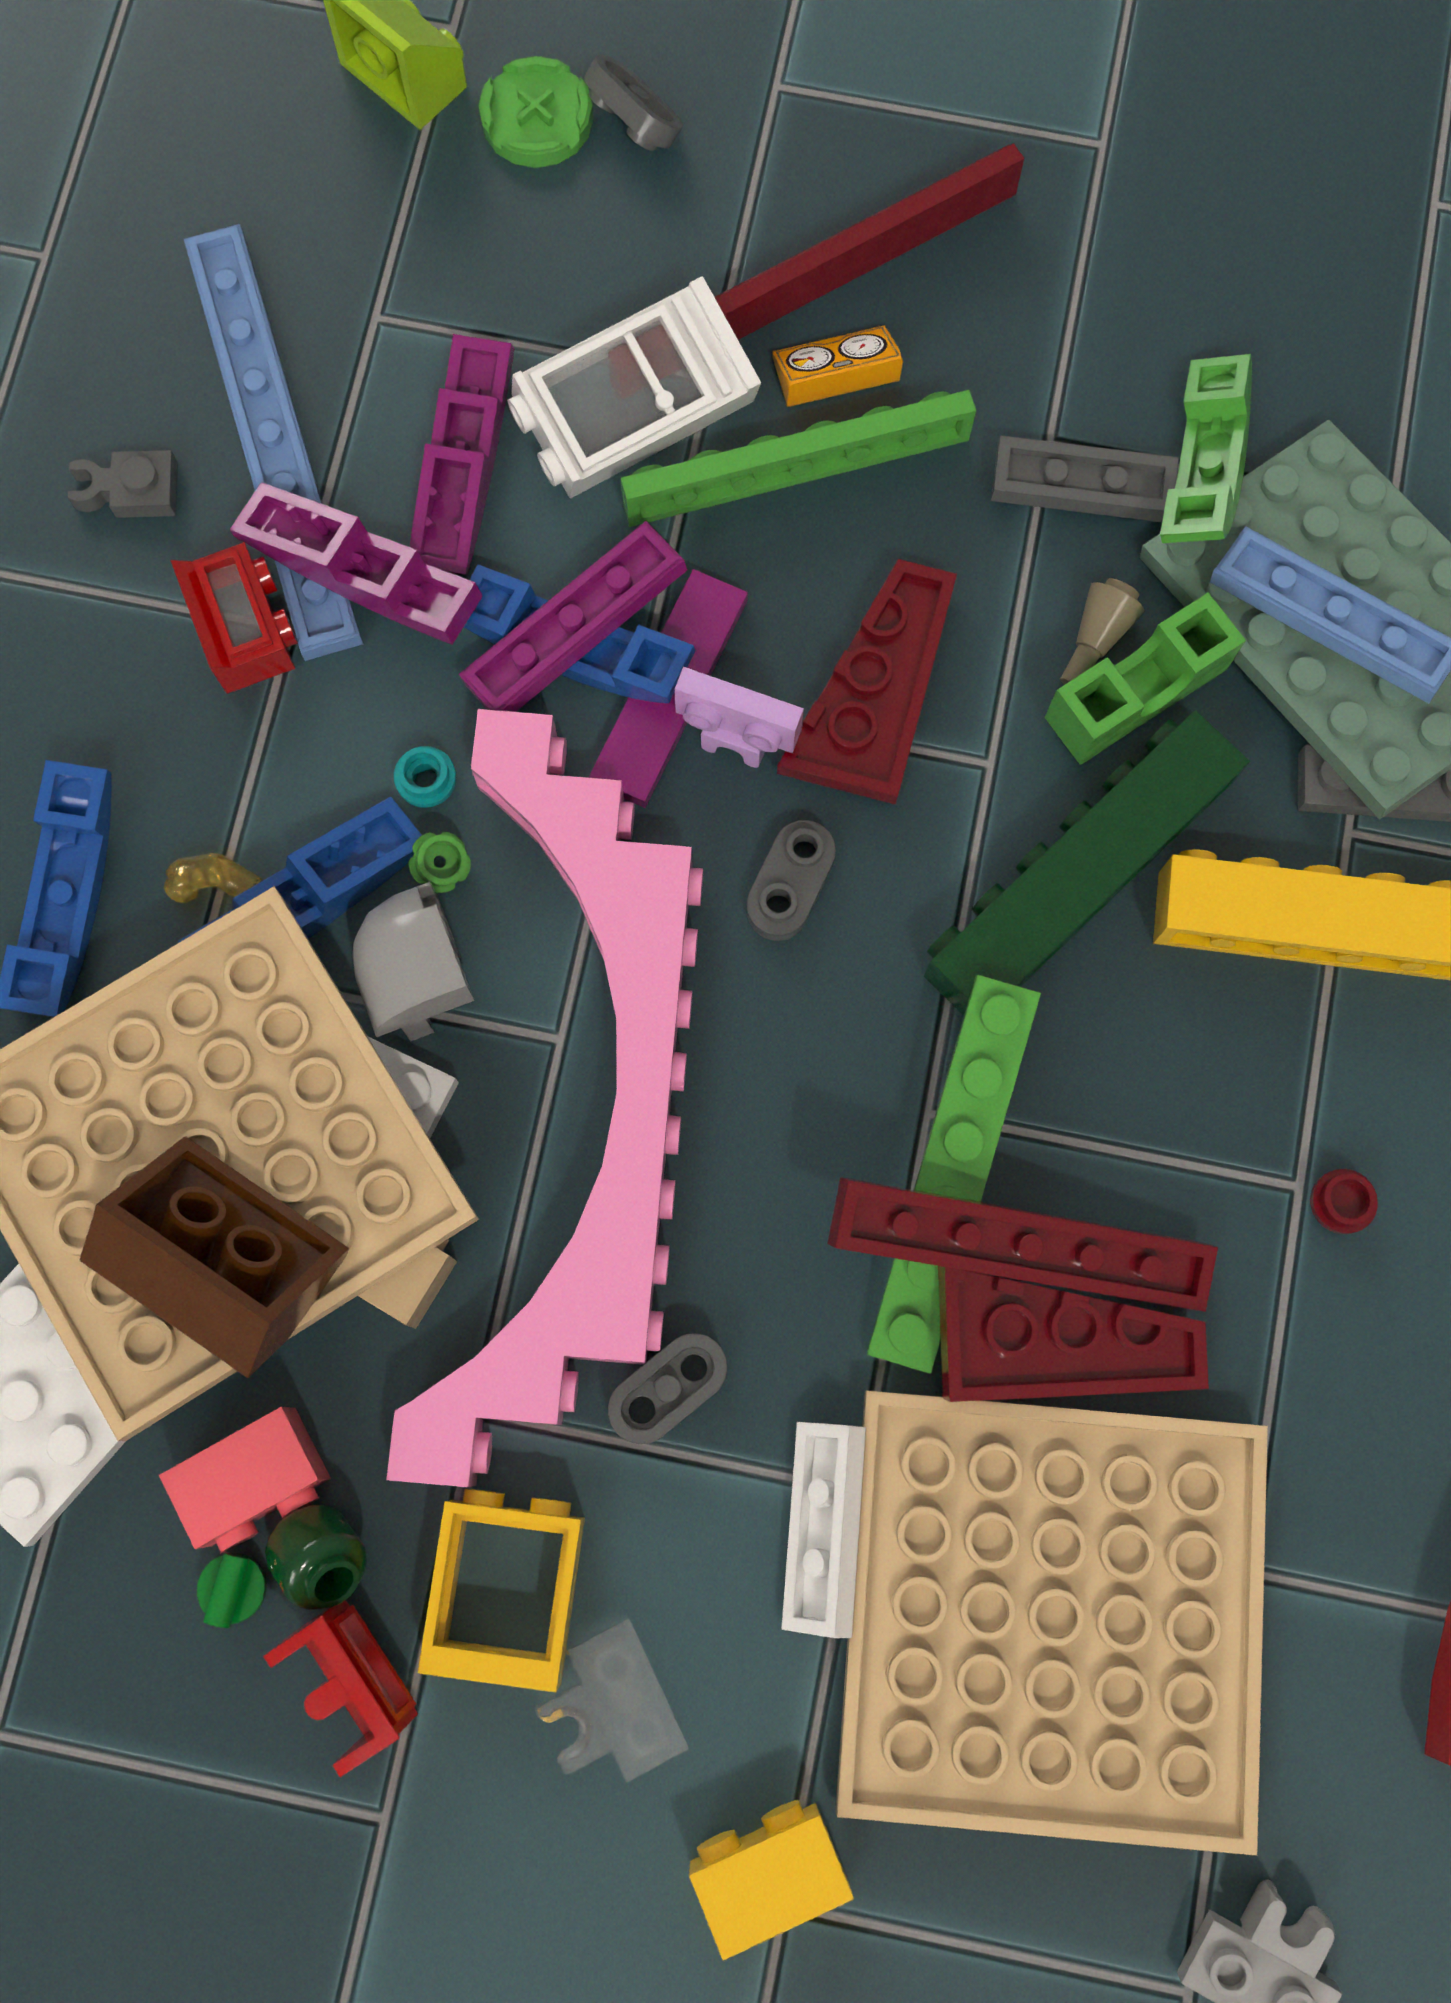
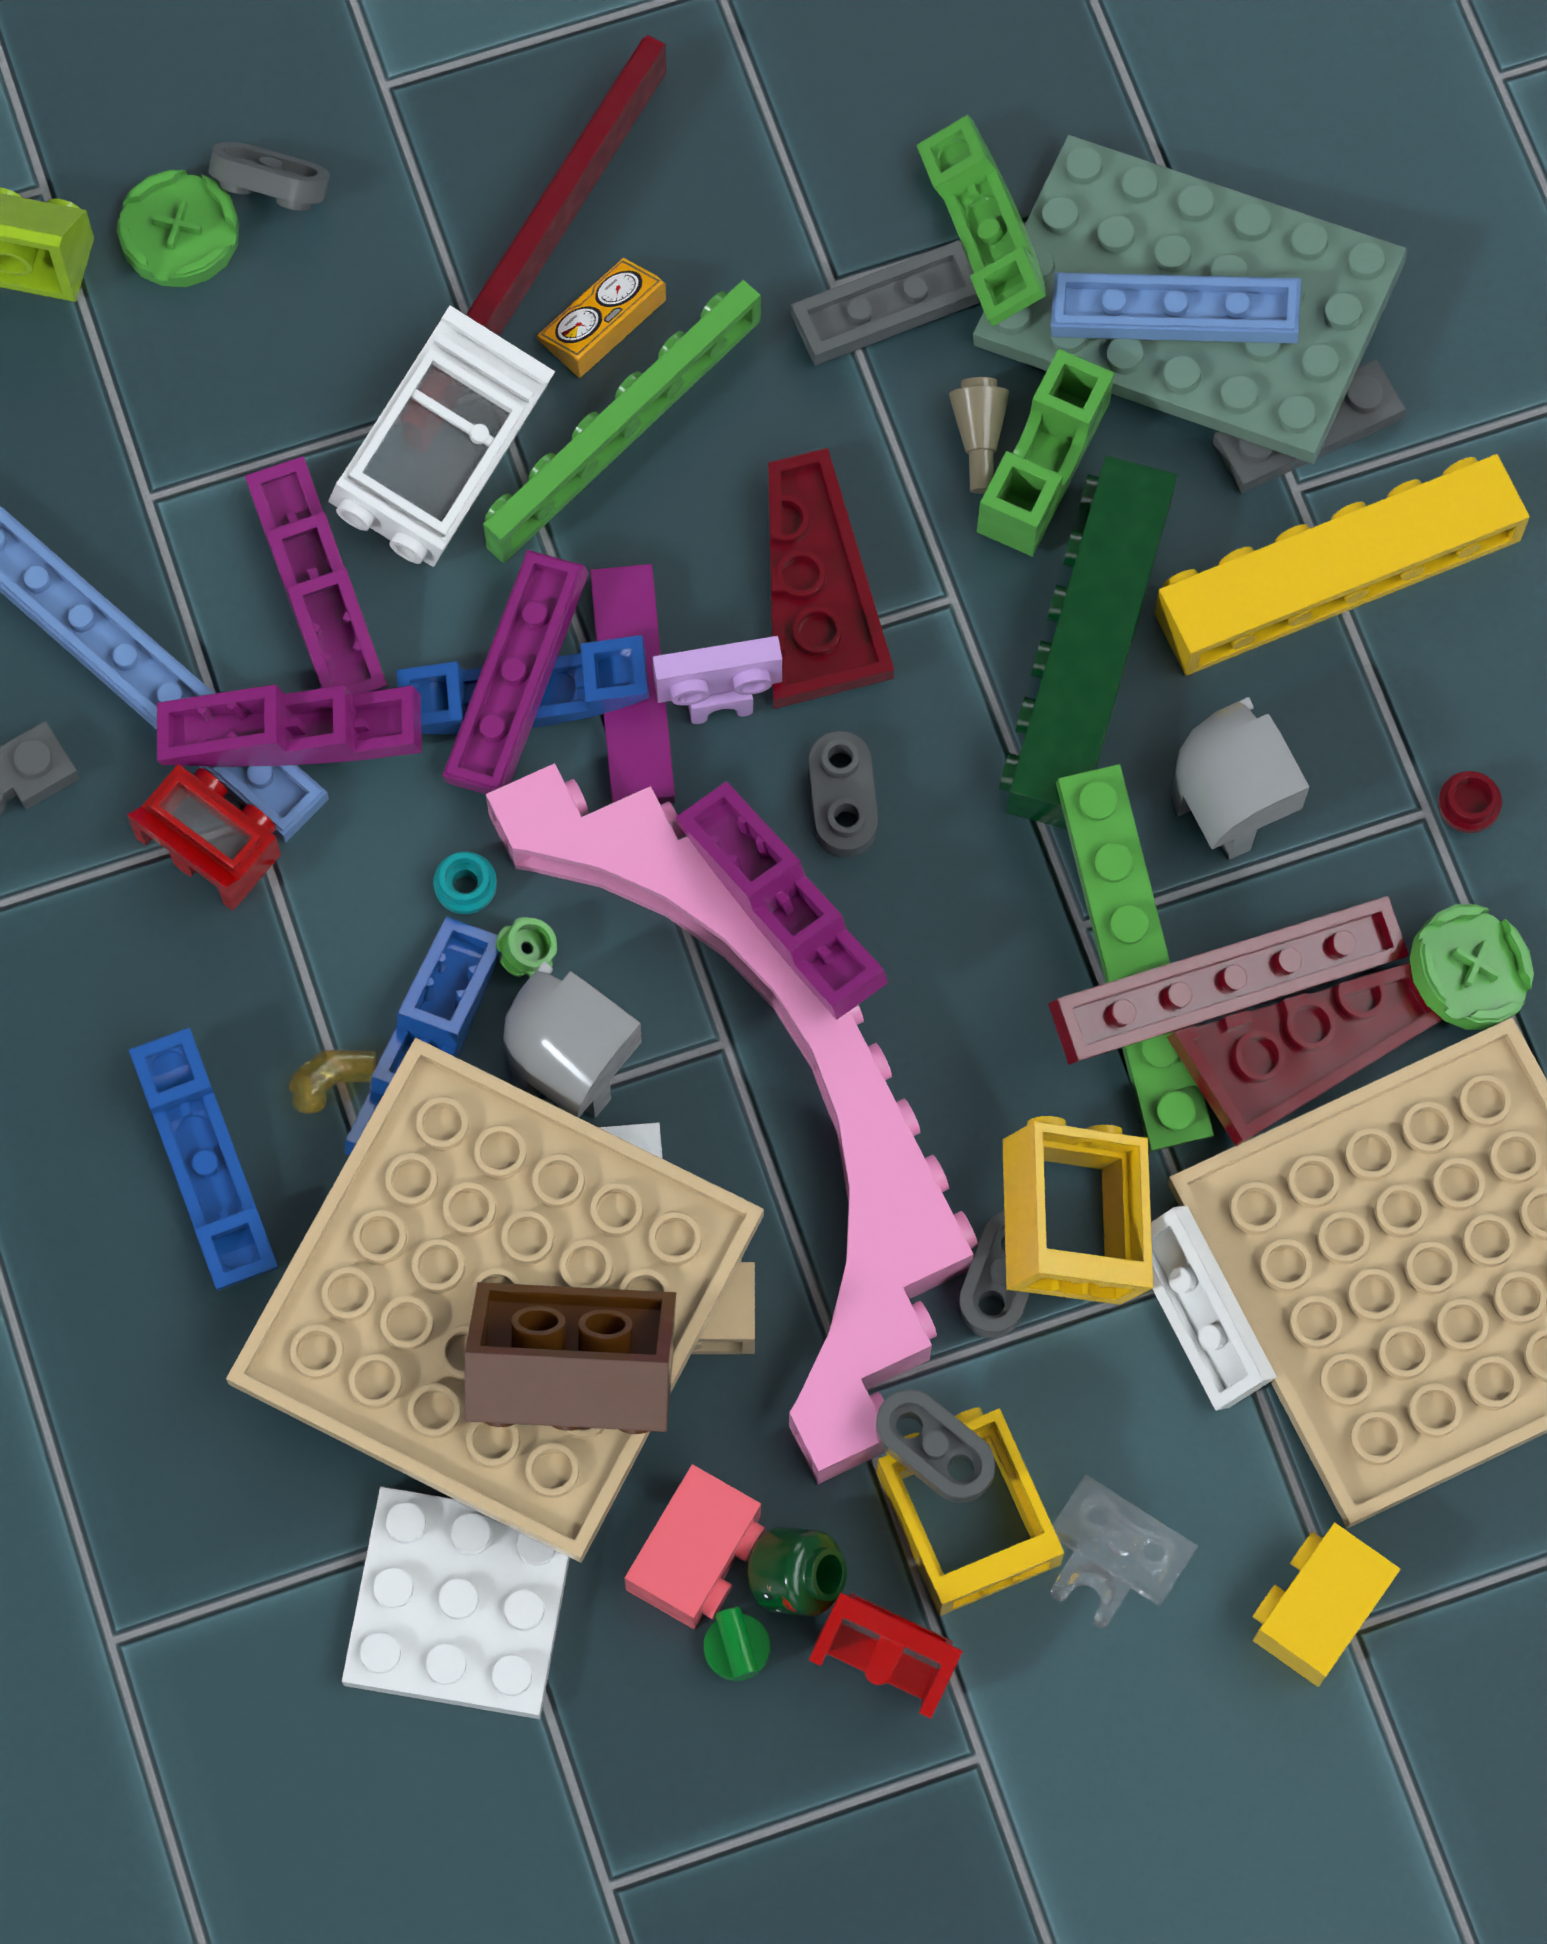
camera: 30 degrees left, 5 degrees down
(490, 1527) = (936, 1447): none -> dark grey plate
(667, 947) = (781, 900): none -> magenta slope
(807, 1400) = (1124, 1162): none -> yellow window
(1142, 1063) = (1236, 777): none -> light grey brick
(1256, 1356) = (1471, 967): none -> bright green tile

